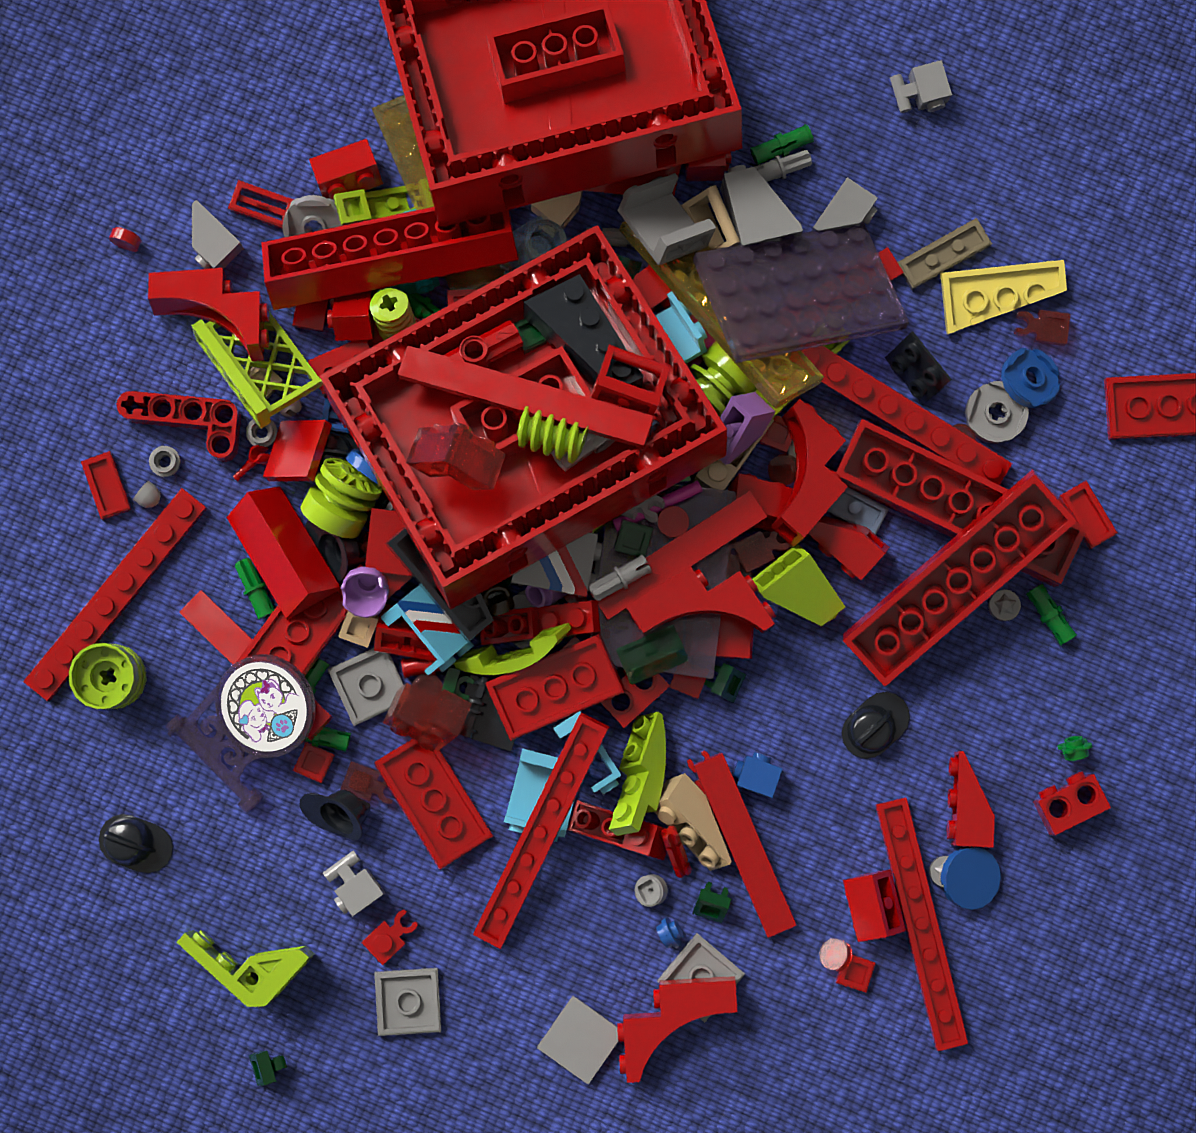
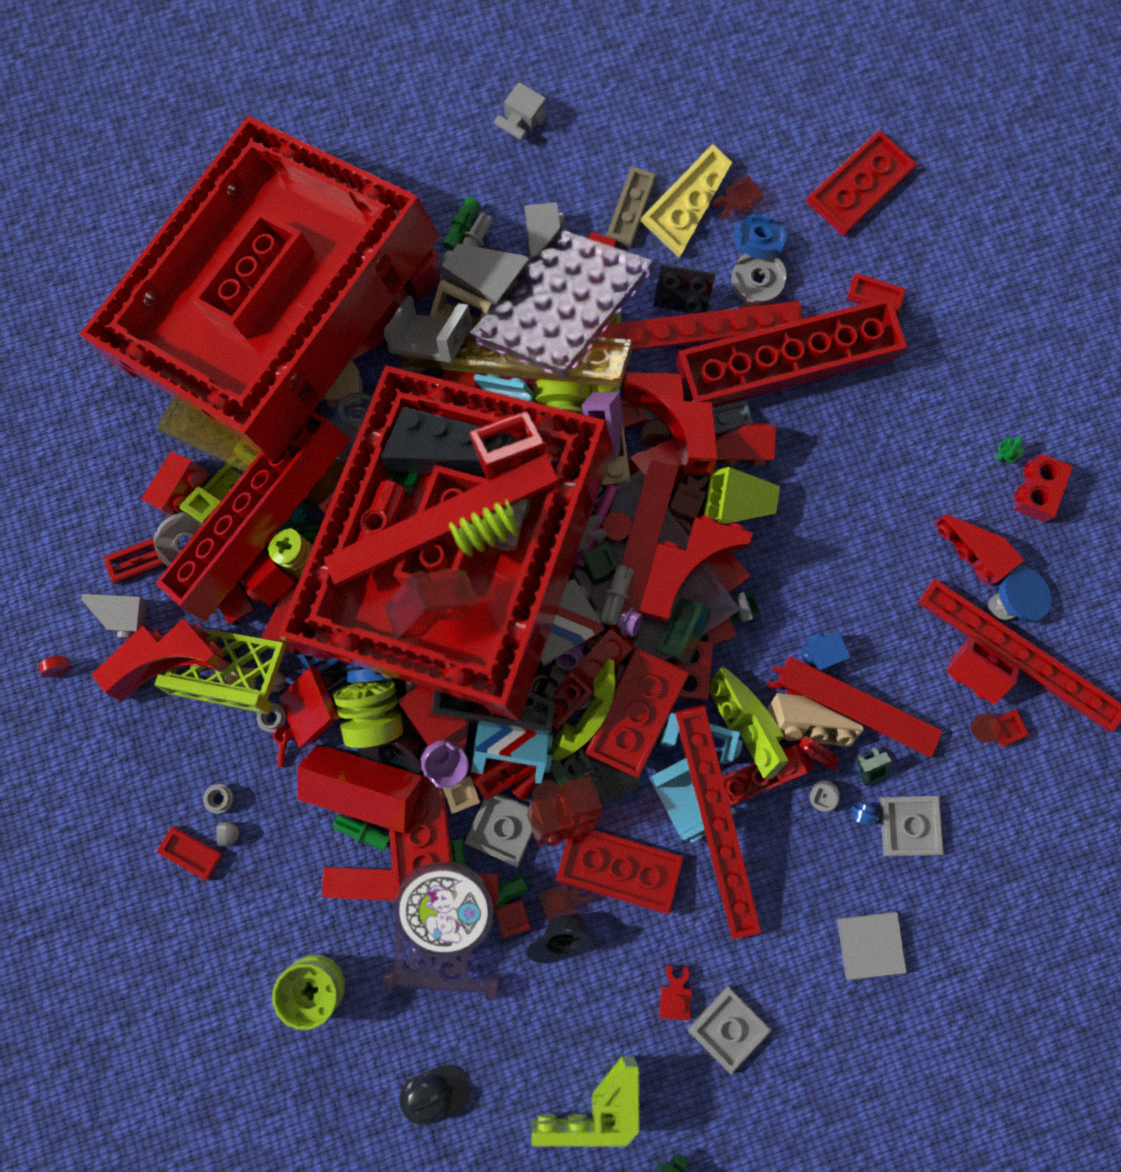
camera: 40 degrees left, 5 degrees down
(116, 593) = (263, 925): red plate -> none
(178, 417) = (200, 758): red beam -> none
(358, 889) = (625, 981): light grey brick -> none
(610, 609) = (630, 622): none -> medium lavender plate
(679, 1003) = (920, 857): red arch -> none
(875, 725) = (867, 550): black piece -> none
(959, 577) = (841, 396): red brick -> none
(1004, 605) = (878, 398): light grey tile -> none
(1051, 614) = (913, 377): green pin -> none

